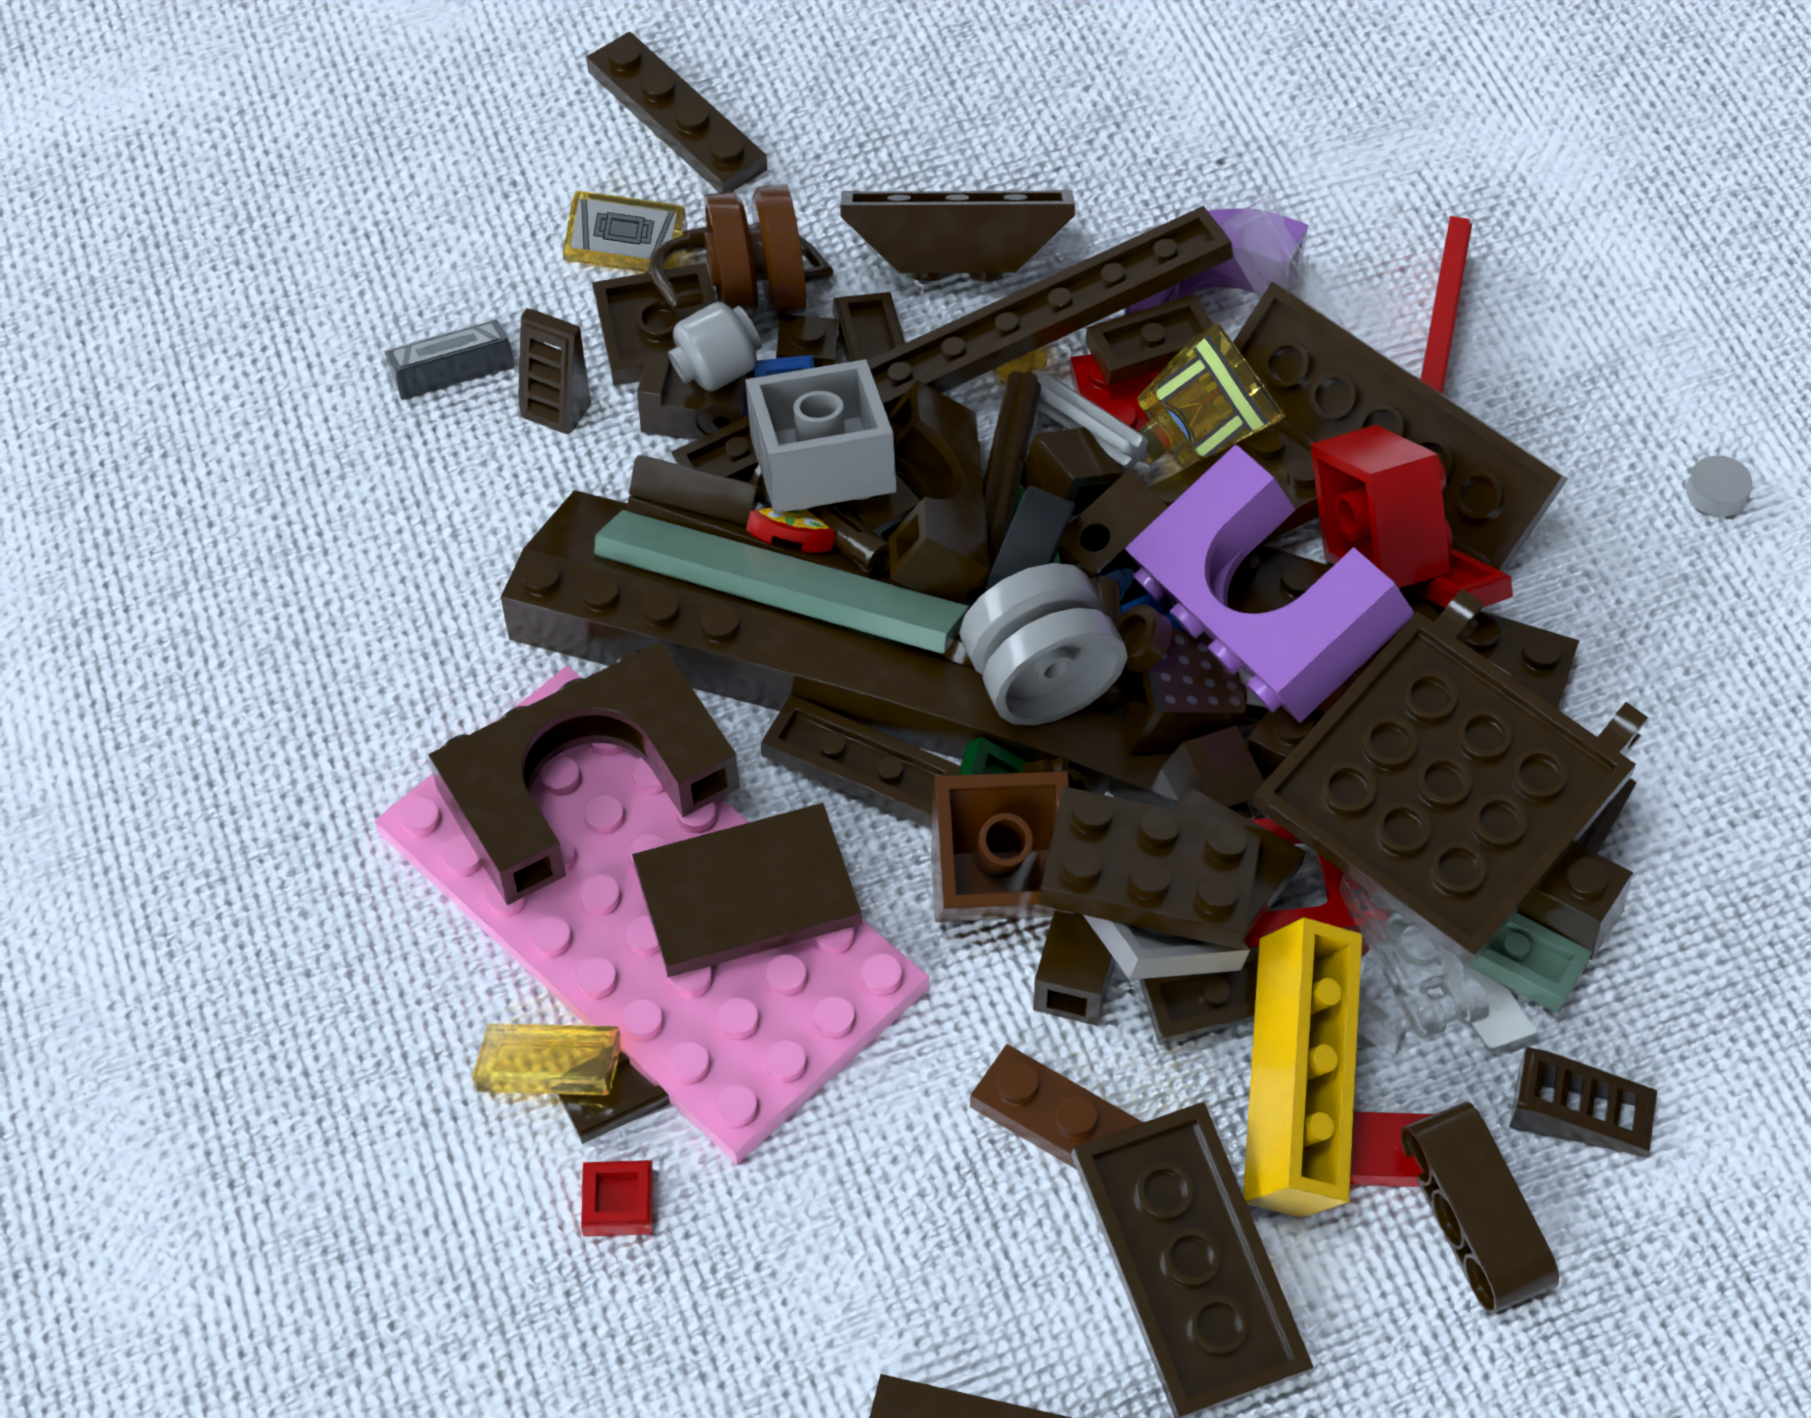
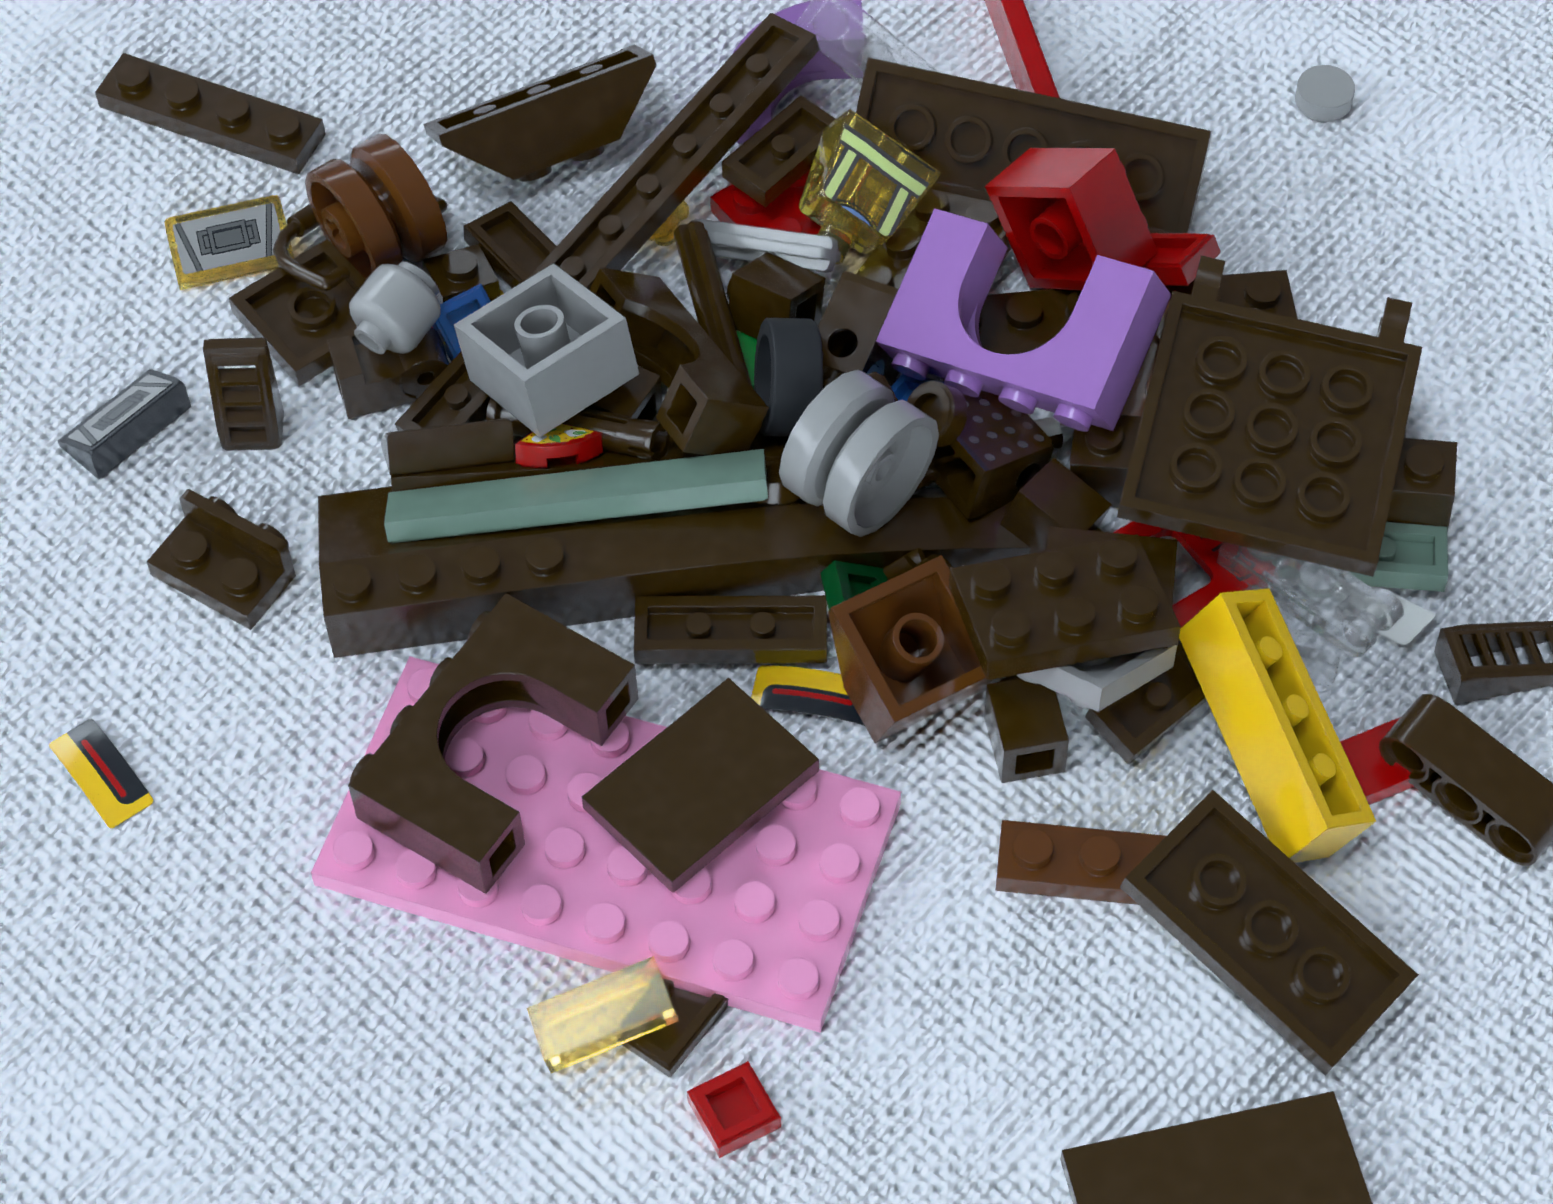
camera: 25 degrees left, 0 degrees up
(257, 657) = (101, 773): none -> sticker
(460, 514) = (224, 560): none -> dark brown bracket
(895, 845) = (803, 692): none -> sticker

